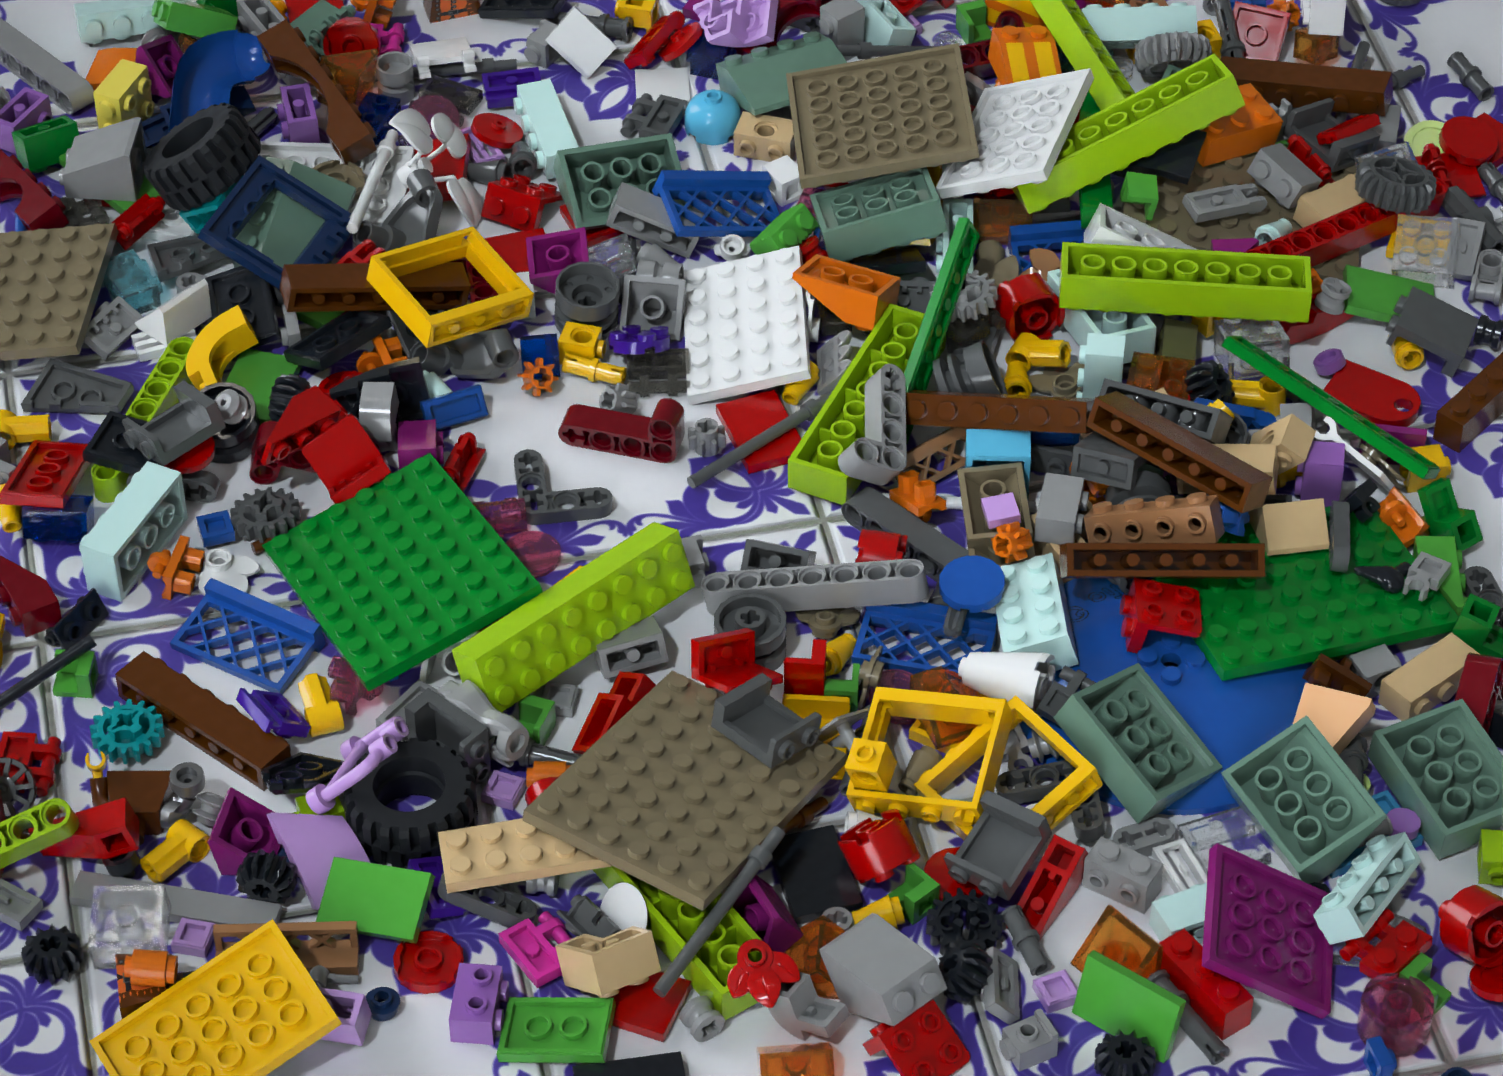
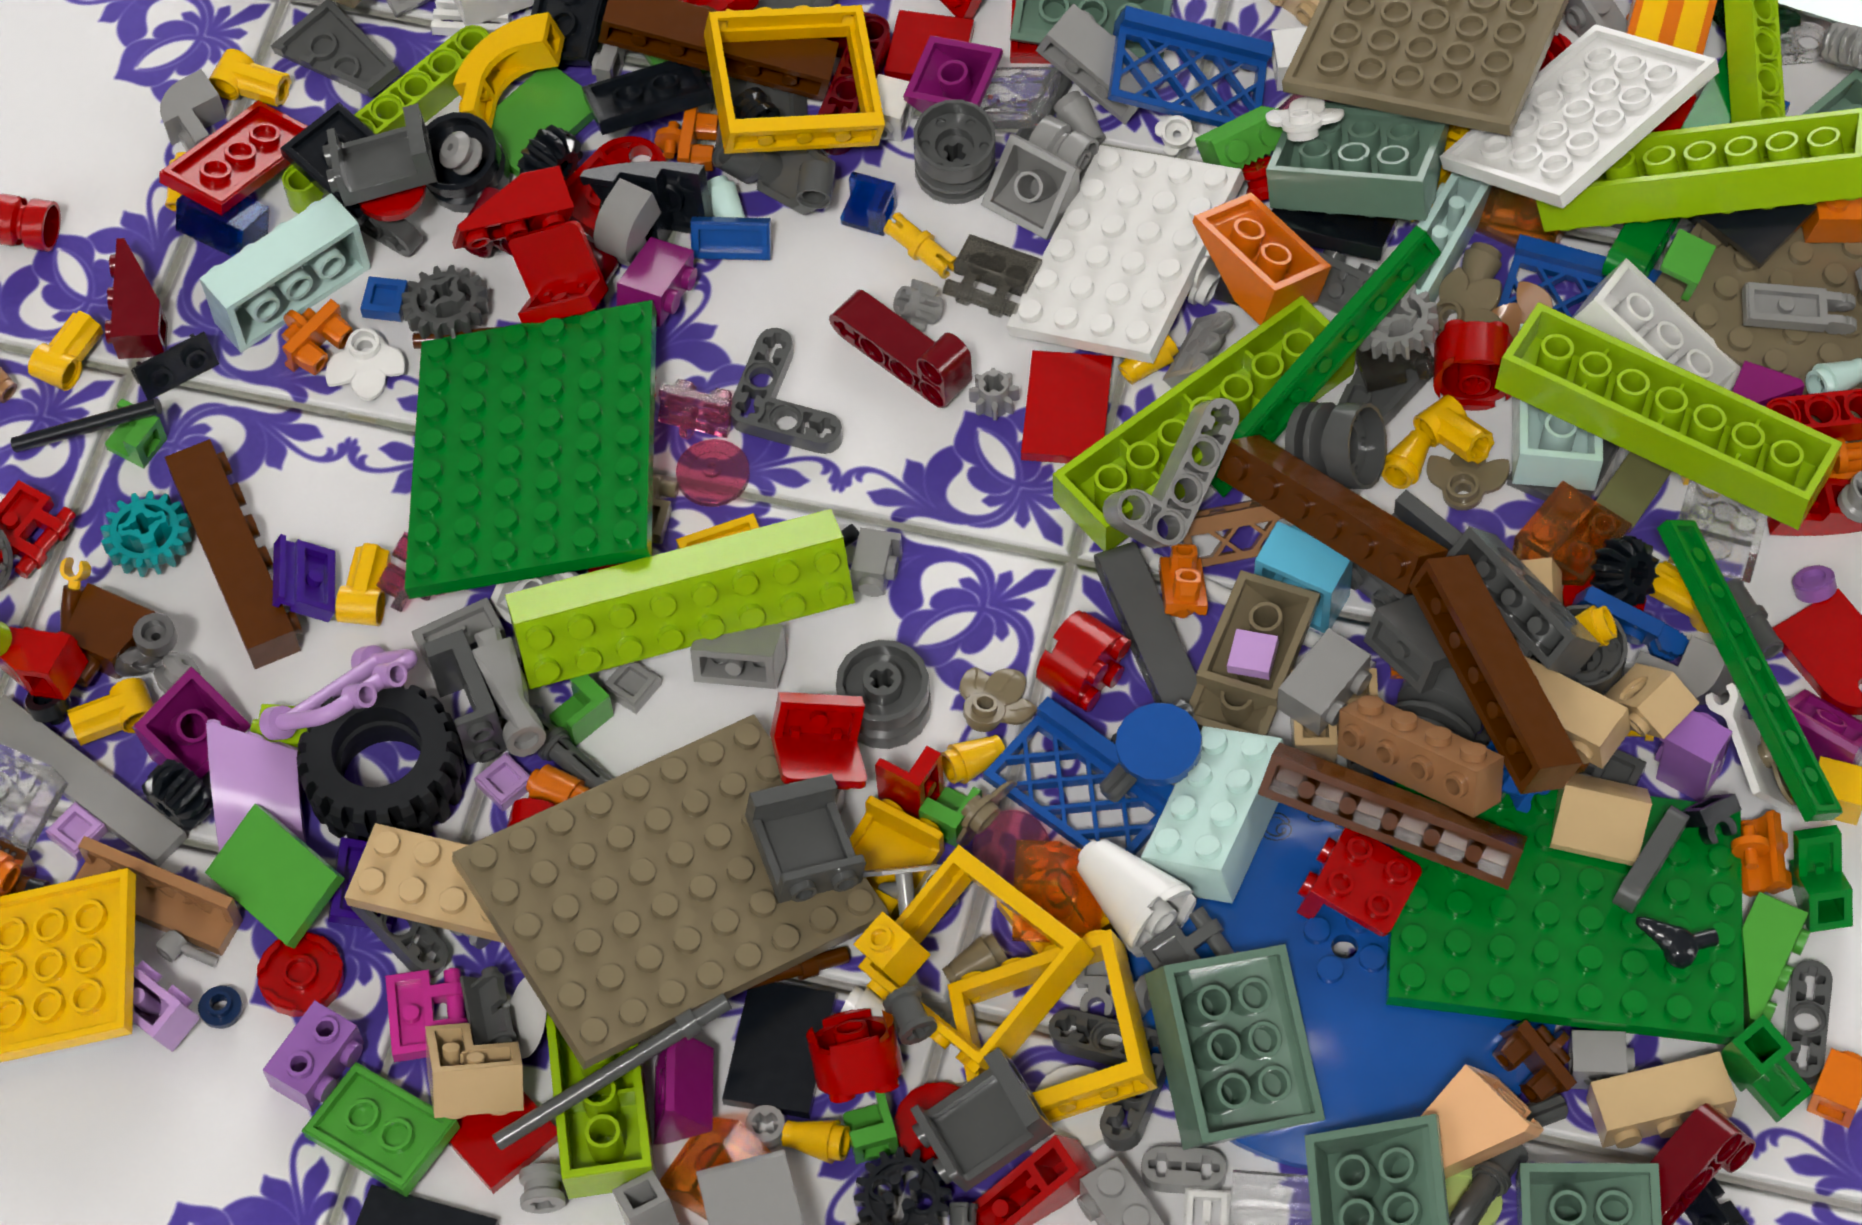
camera: 30 degrees right, 15 degrees up
(258, 613) = (360, 434): blue fence -> none
(299, 773) = (284, 673): black tile -> none
(464, 460) = (697, 320): red hinge -> none
(547, 377) = (847, 244): orange gear -> none
(581, 341) = (922, 192): yellow brick -> none
(611, 707) = (670, 731): red slope -> none
(635, 341) = (989, 226): dark purple plate -> none
(762, 977) = (615, 1180): red plate -> none
(770, 555) = (972, 605): dark grey brick -> none
(807, 411) = (1129, 406): dark grey bar -> none
(824, 585) = (991, 665): light grey beam -> none
(827, 197) = (1304, 118): none -> white plate
(909, 798) = (910, 1014): none -> dark grey bush
(1012, 542) = (1239, 705): orange gear -> none
(1102, 360) = (1495, 497): light aqua brick -> none
(1426, 573) = (1729, 957): light grey plate -> none

